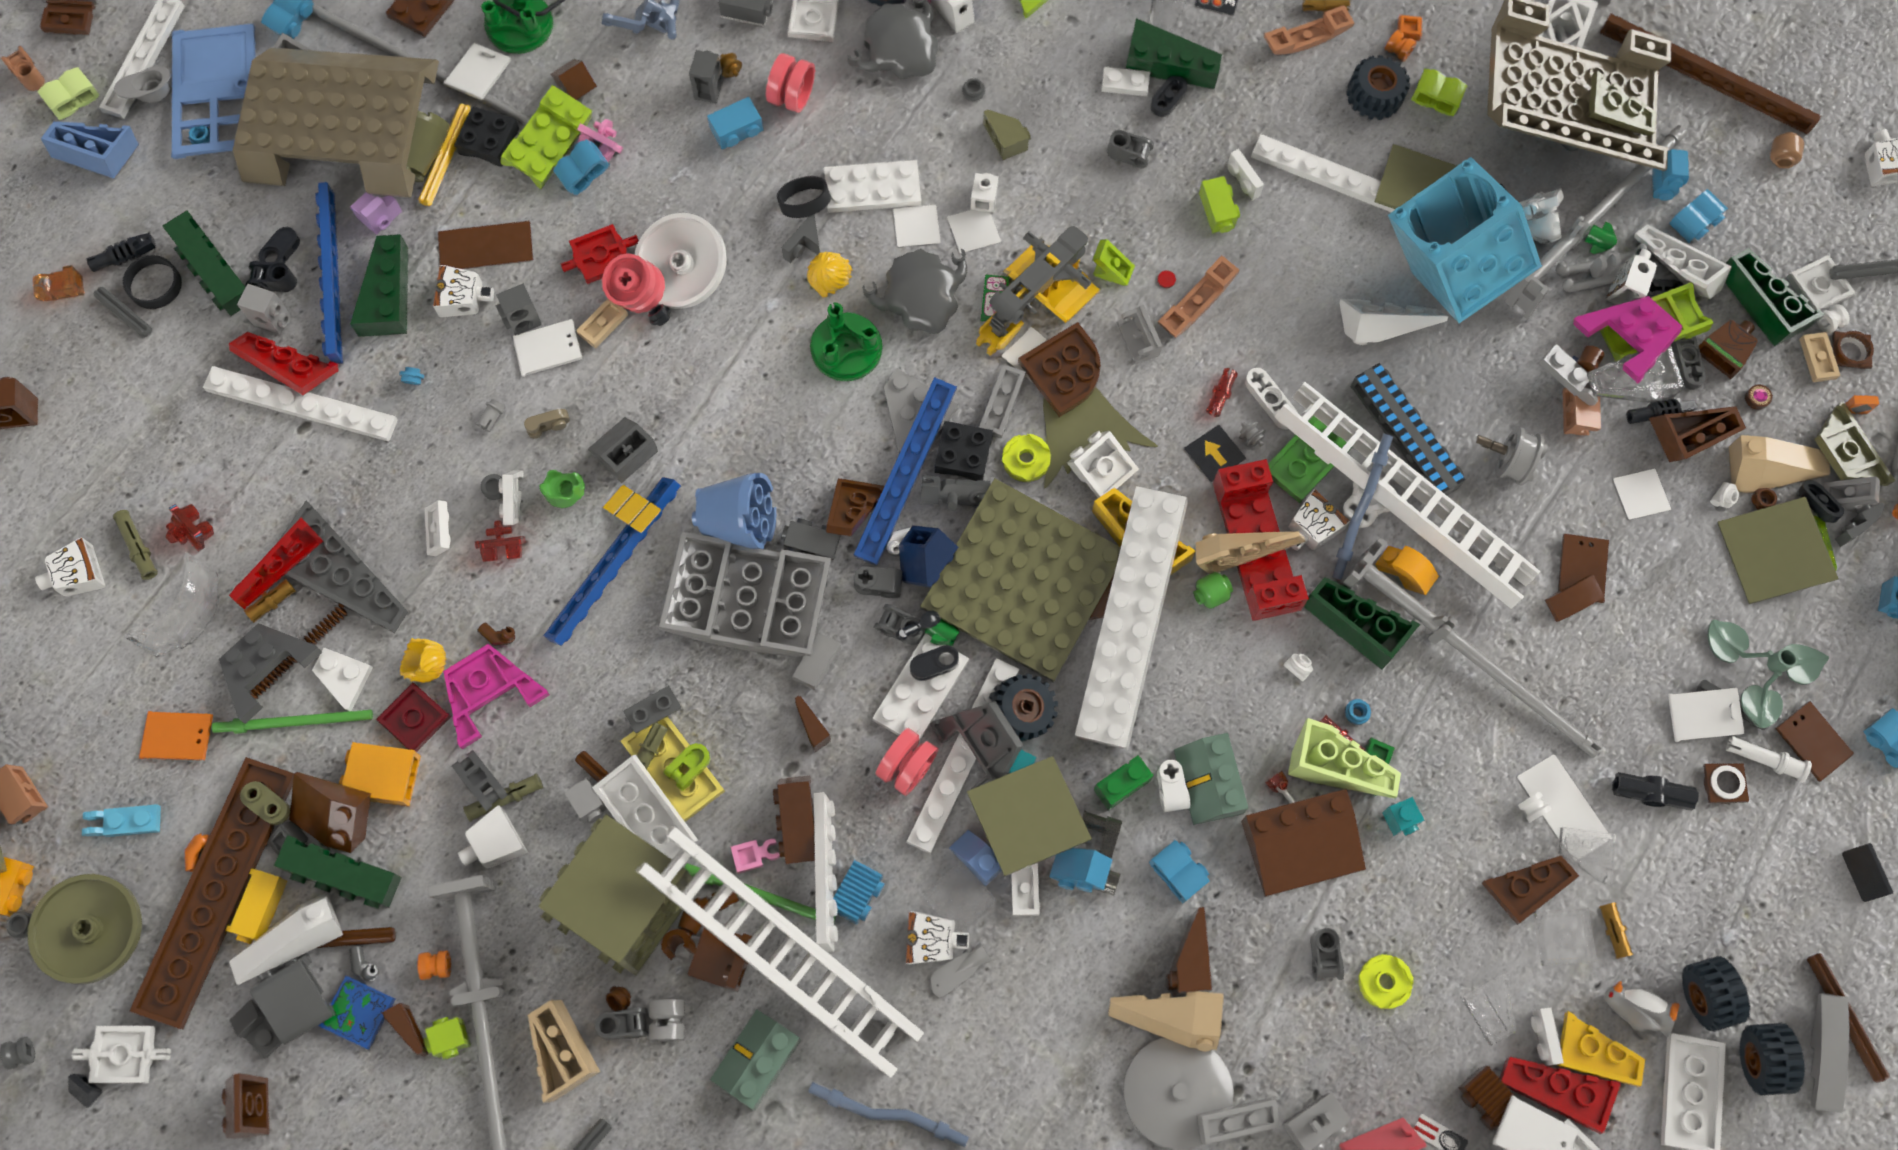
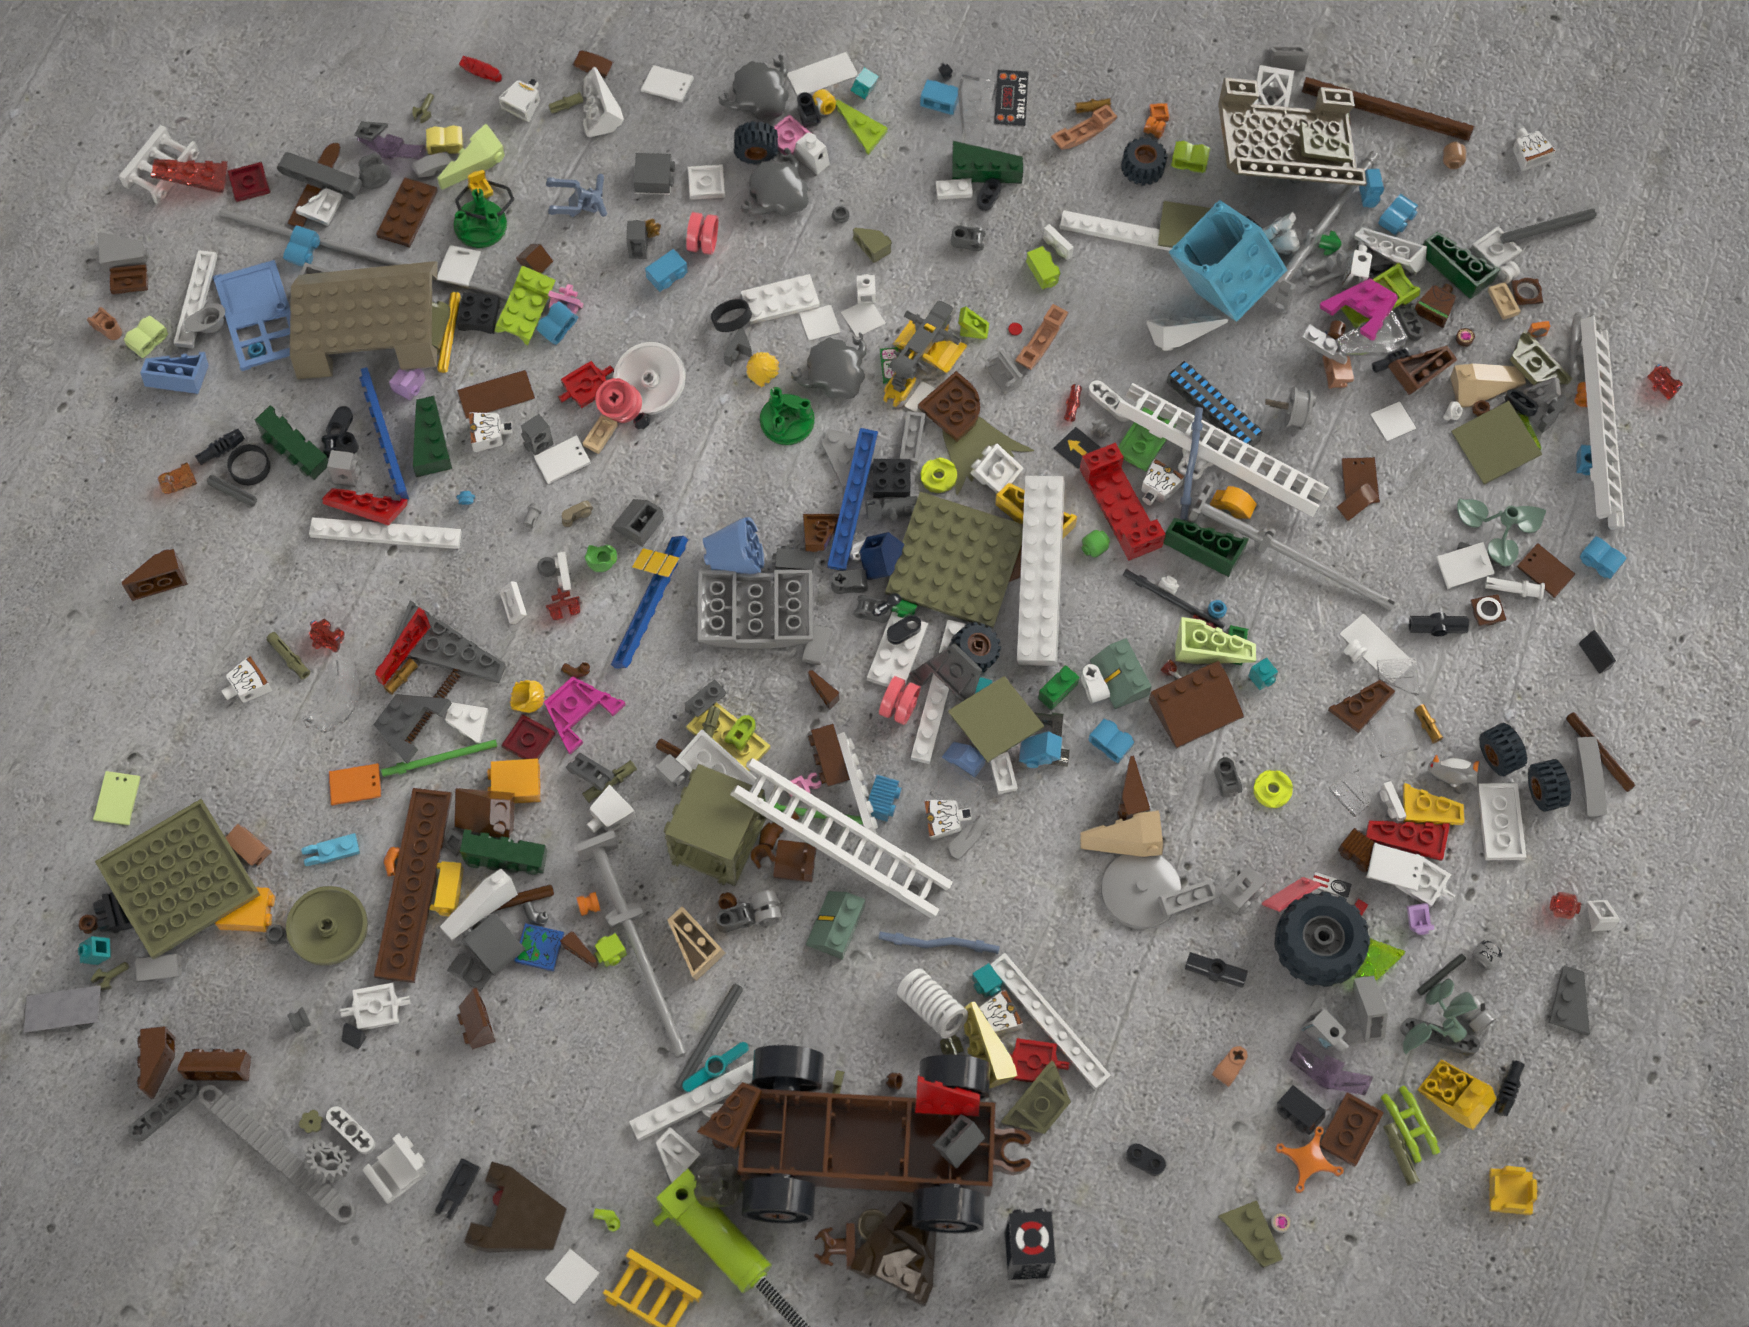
camera: 10 degrees left, 5 degrees down
(264, 802) = (436, 814): olive plate -> none
(1227, 551) = (1104, 511): tan wedge -> none
(1264, 653) = (1141, 581): none -> black bar

